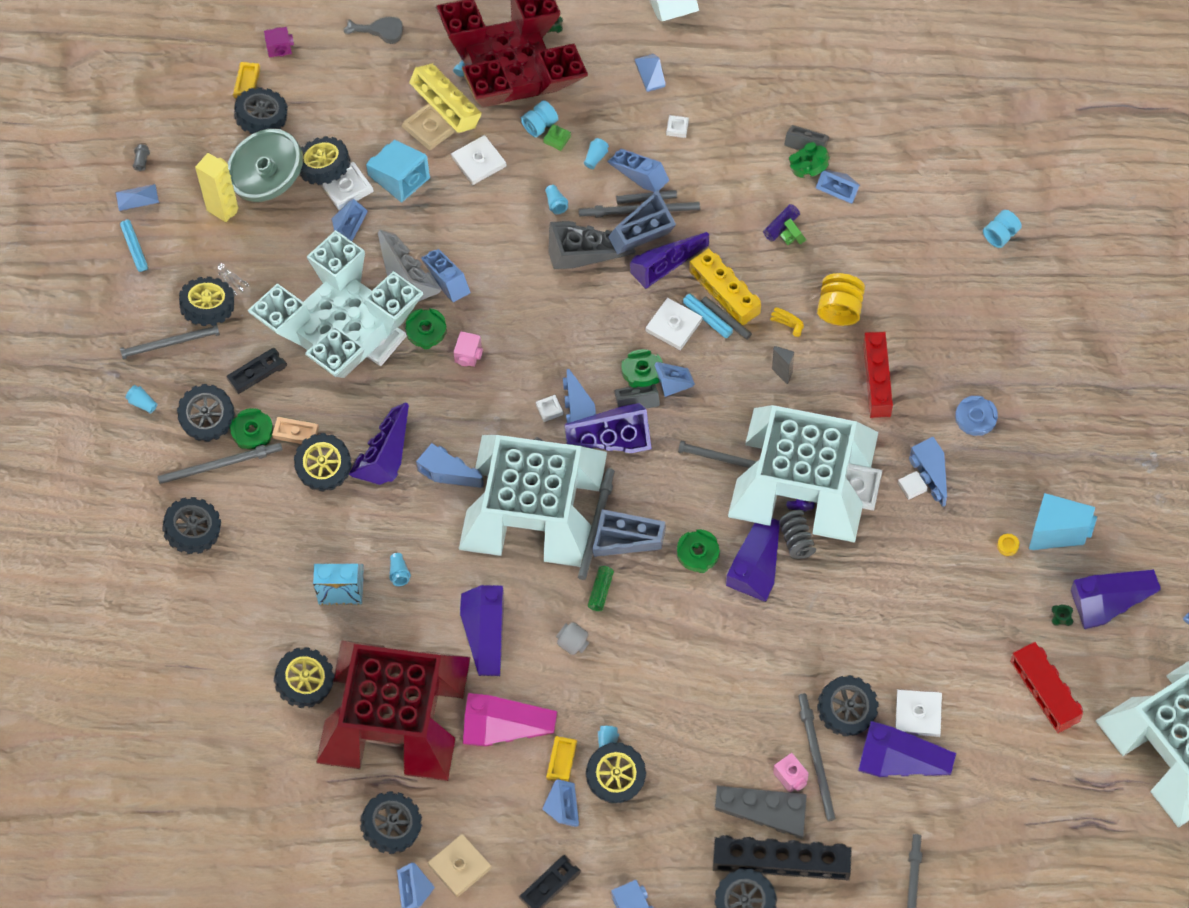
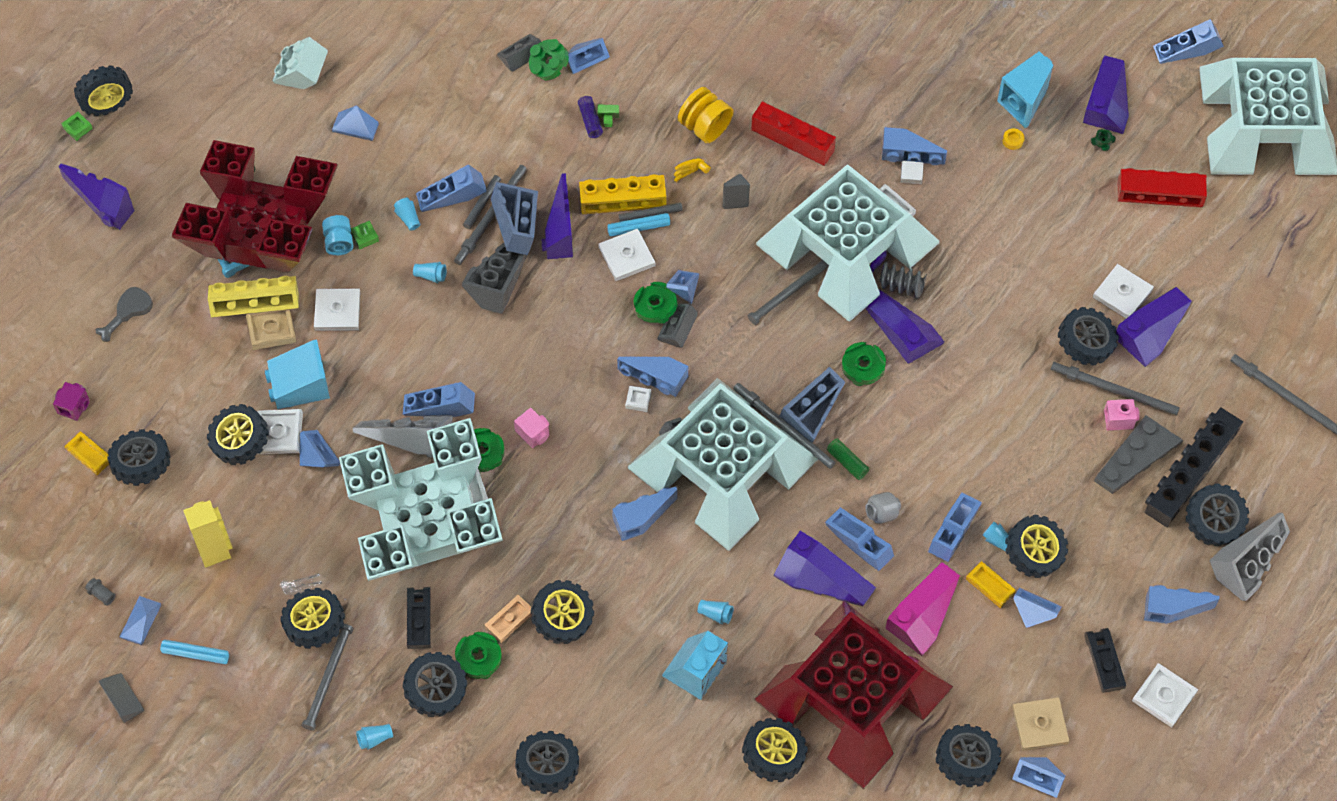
camera: 60 degrees left, 0 degrees up
(68, 222) = (121, 696): none -> dark grey slope
(260, 452) = (507, 662): dark grey bar -> none
(265, 165) = (201, 474): sand green dish -> none
(385, 450) = (586, 556): dark purple wedge -> none
(533, 638) = (860, 538): none -> medium blue slope
(594, 702) = (954, 527): none -> medium blue slope
(615, 429) = (704, 355): dark purple wedge -> none
(677, 126) = (429, 137): white tile -> none
(976, 415) = (879, 90): medium blue tile -> none

